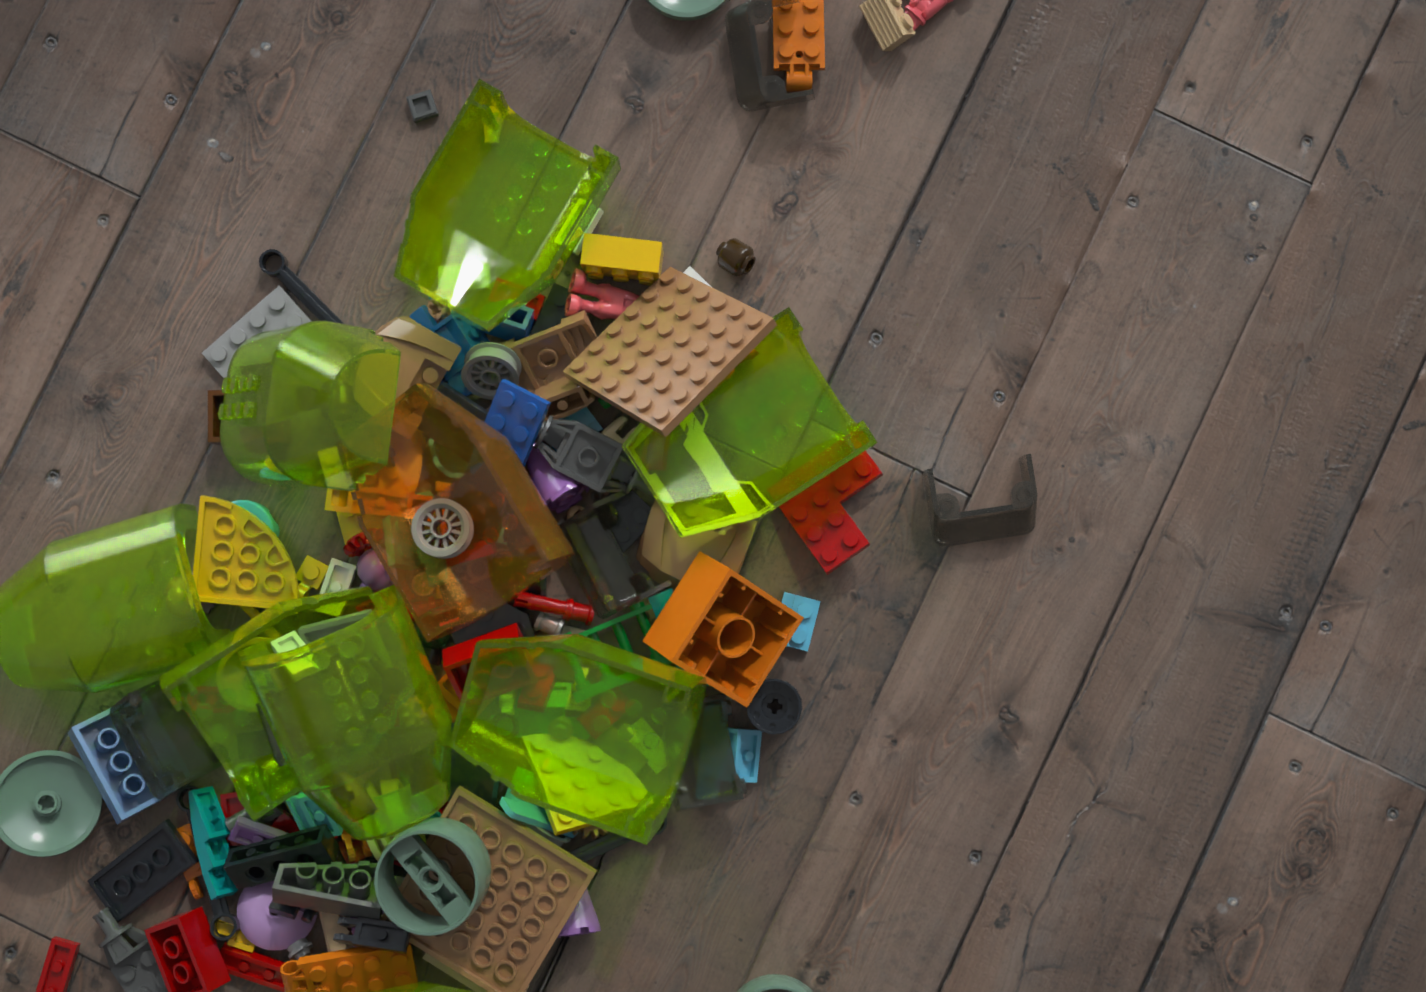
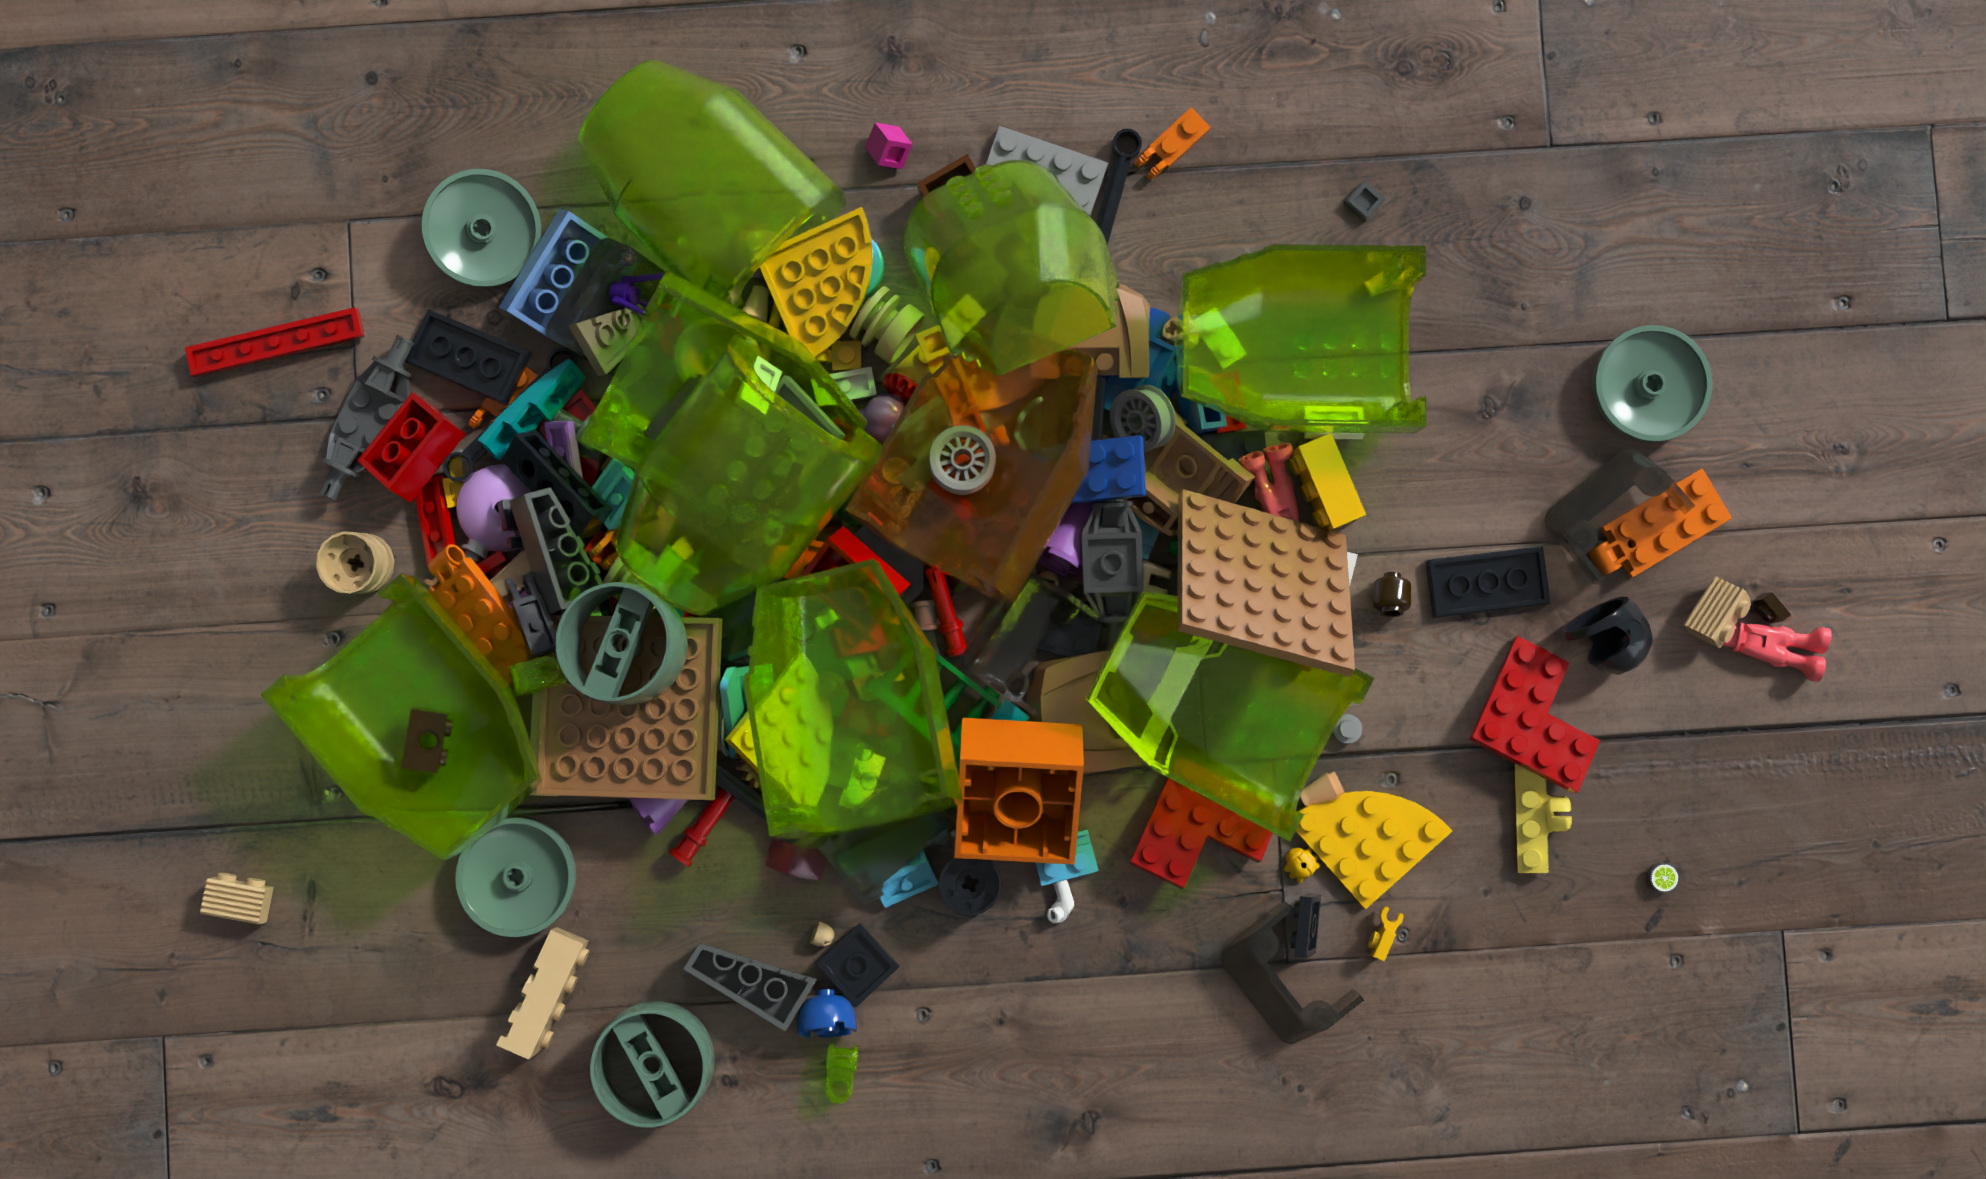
camera: 55 degrees right, 0 degrees up
(163, 717) = (626, 293): none -> dark purple plant
(167, 447) = (888, 145): none -> dark pink panel
(188, 752) = (607, 337): none -> wing
(231, 618) = (758, 303): none -> light nougat cone
(293, 225) = (1174, 142): none -> orange hinge
(301, 529) = (883, 322): none -> wheel
(317, 940) = (494, 563): none -> red plate
(421, 957) = (535, 675): none -> clear neon green piece
(618, 897) = (695, 836): none -> red pin
(681, 831) = (795, 860): none -> clear pink slope
(750, 842) = (822, 935): none -> tan hinge
(760, 916) = (758, 986): none -> dark grey wedge
(767, 179) = (1488, 582): none -> black tile
(789, 827) = (858, 964): none -> black plate
(814, 874) = (826, 1016): none -> blue cylinder
(819, 349) = (1348, 729): none -> light grey plate
(831, 642) = (1063, 903): none -> white arm
(854, 394) = (1323, 789): none -> light nougat cone
(860, 103) = (1618, 635): none -> black piece
(862, 886) = (841, 1069): none -> clear neon green piece
(888, 217) = (1518, 721): none -> red plate
(895, 445) = (1295, 858): none -> yellow animal
(911, 380) = (1370, 839): none -> yellow plate
(942, 459) = (1308, 914): none -> black plate
(963, 243) = (1536, 820): none -> light yellow plate
(993, 414) = (1381, 941): none -> yellow plate
(1064, 175) = (1663, 877): none -> tile

